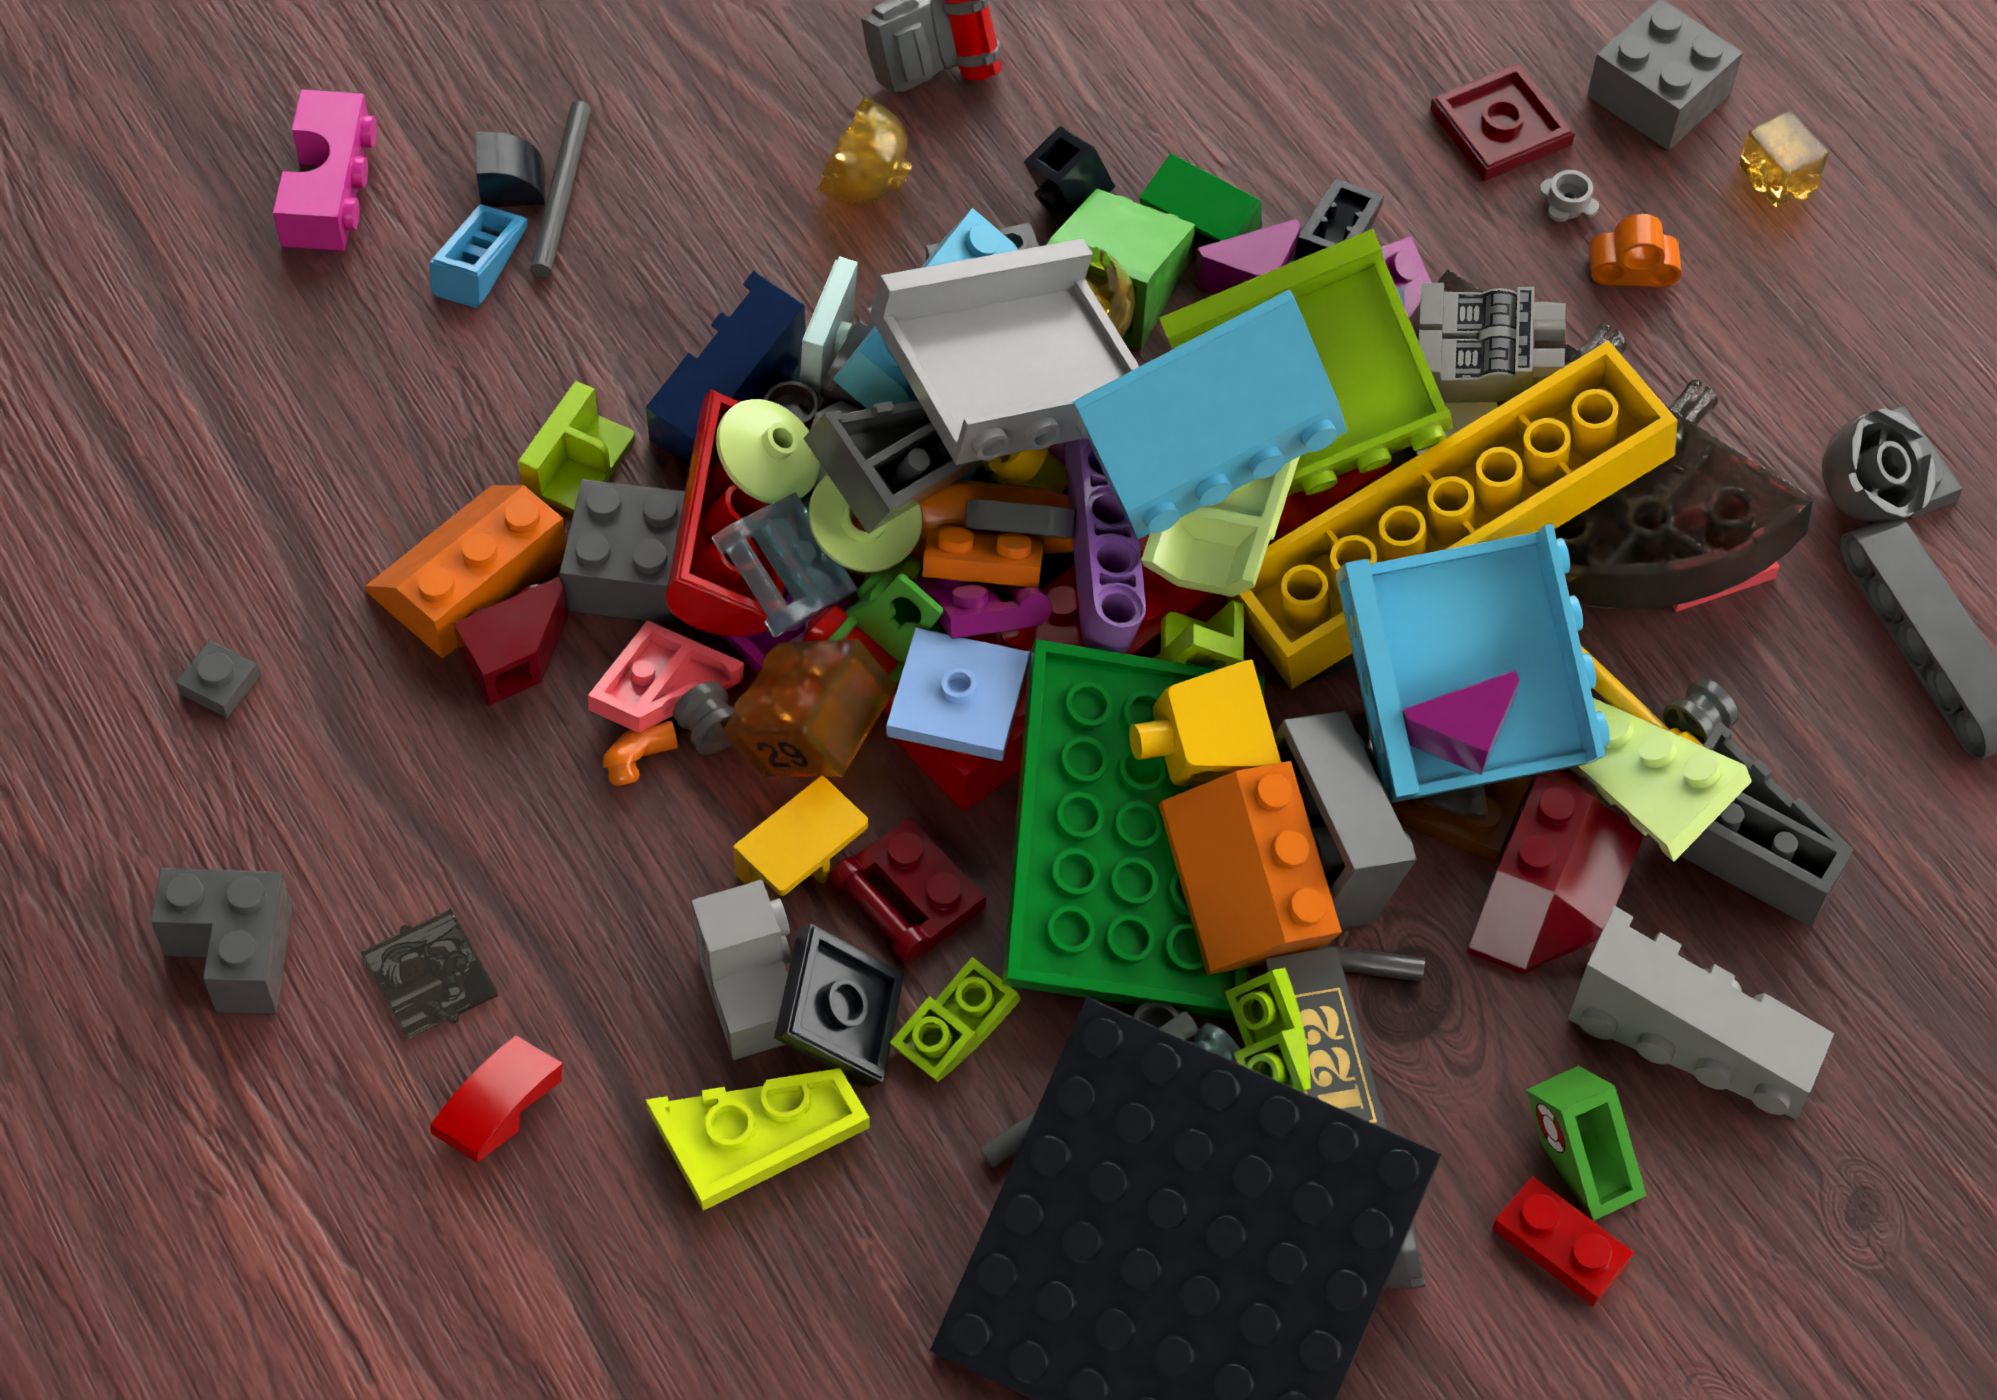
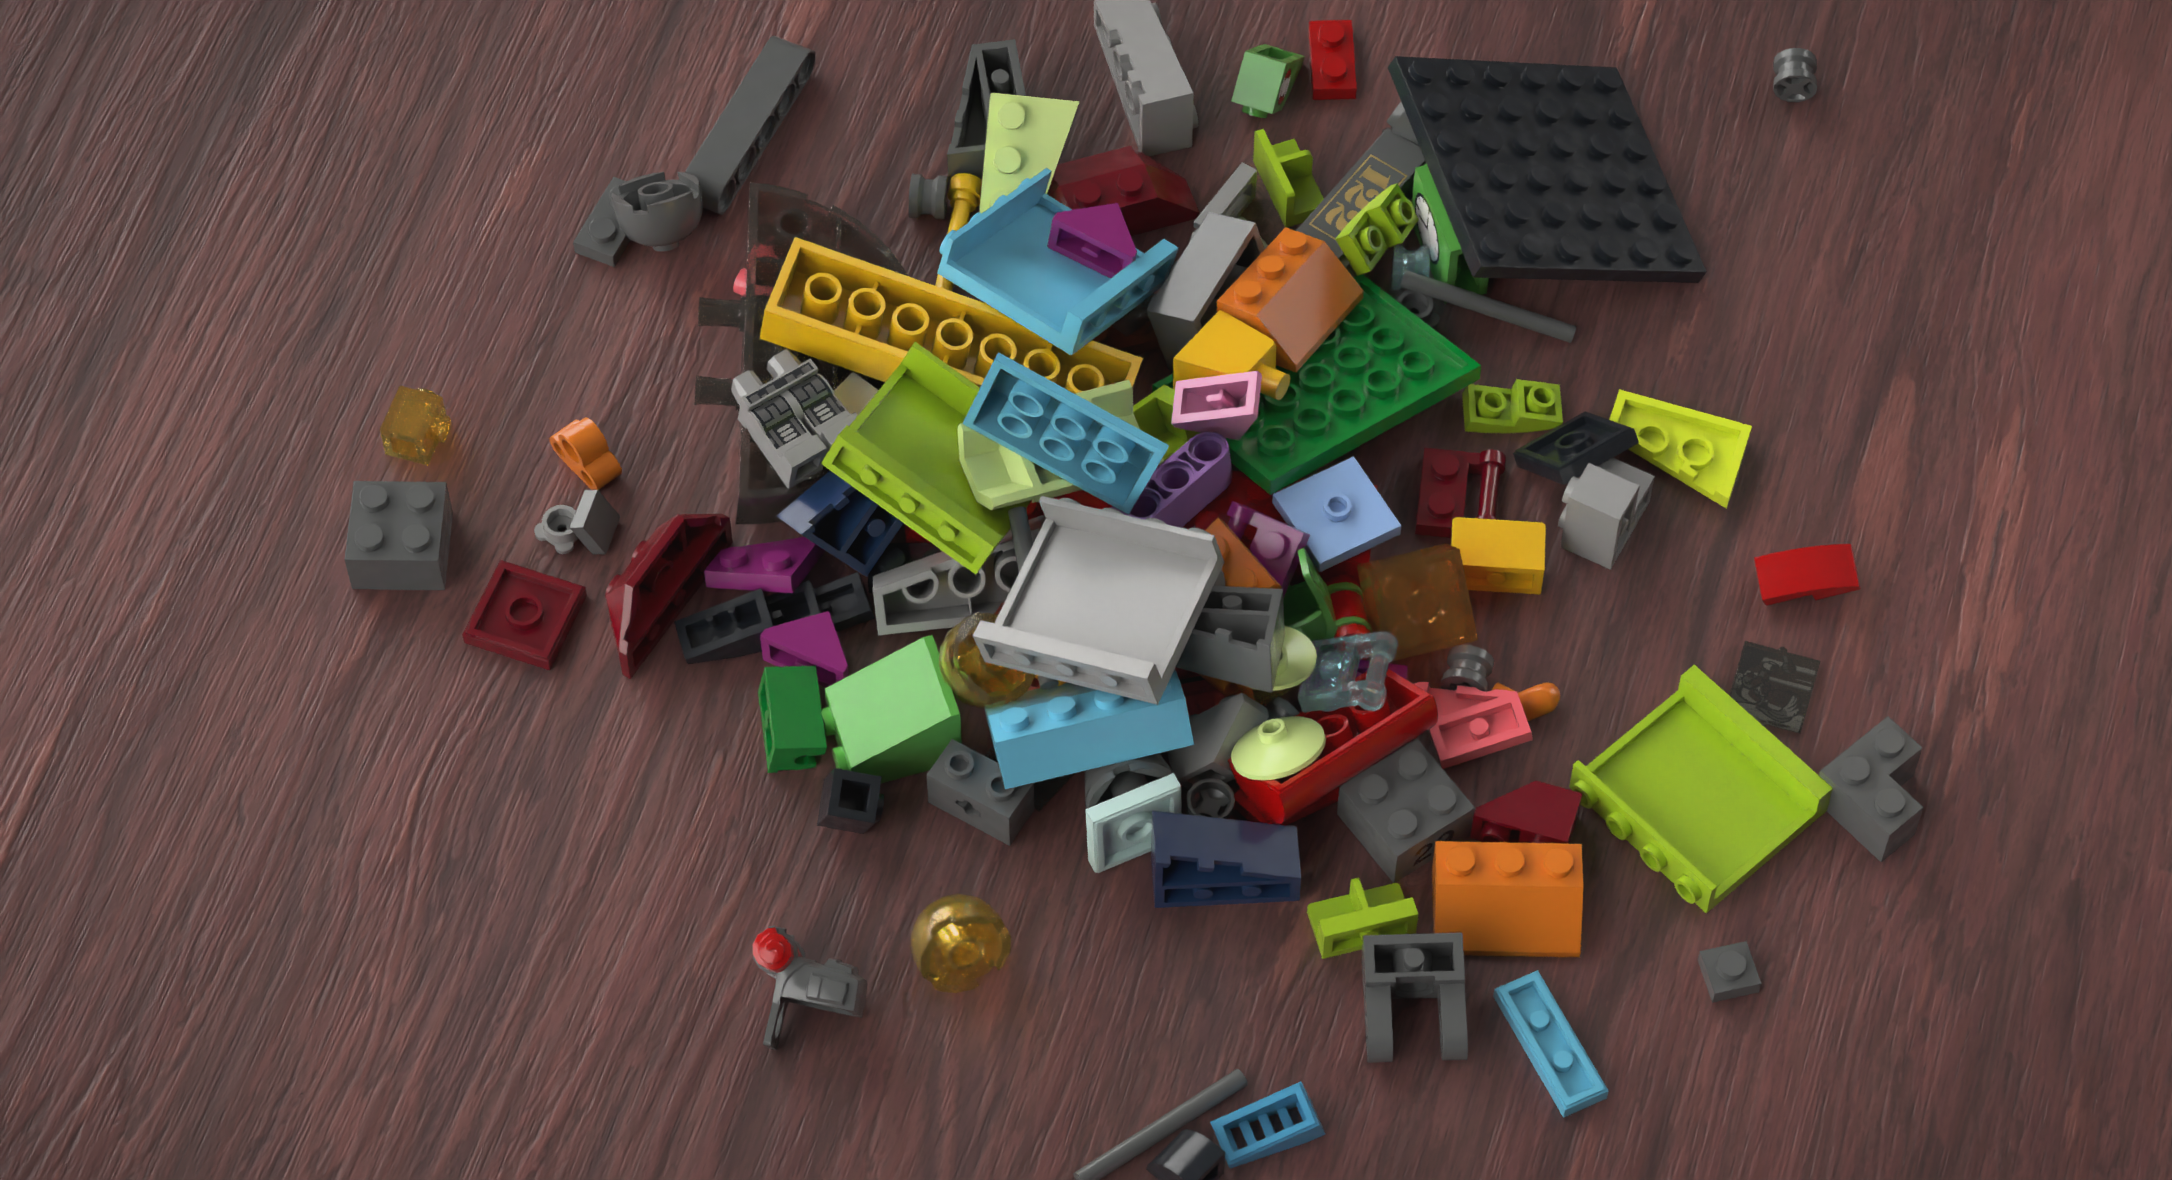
camera: 130 degrees left, 0 degrees up
(317, 497) = (1550, 1043): none -> medium azure tile
(398, 798) = (1702, 791): none -> lime panel
(474, 435) = (1414, 969): none -> dark grey brick
(1155, 643) = (1218, 404): none -> bright pink slope
(1428, 194) = (661, 582): none -> dark red wedge
(1434, 1049) = (1287, 178): none -> lime panel
(1444, 956) = (1233, 196): none -> light grey tile
(1547, 210) = (595, 522): none -> dark grey tile

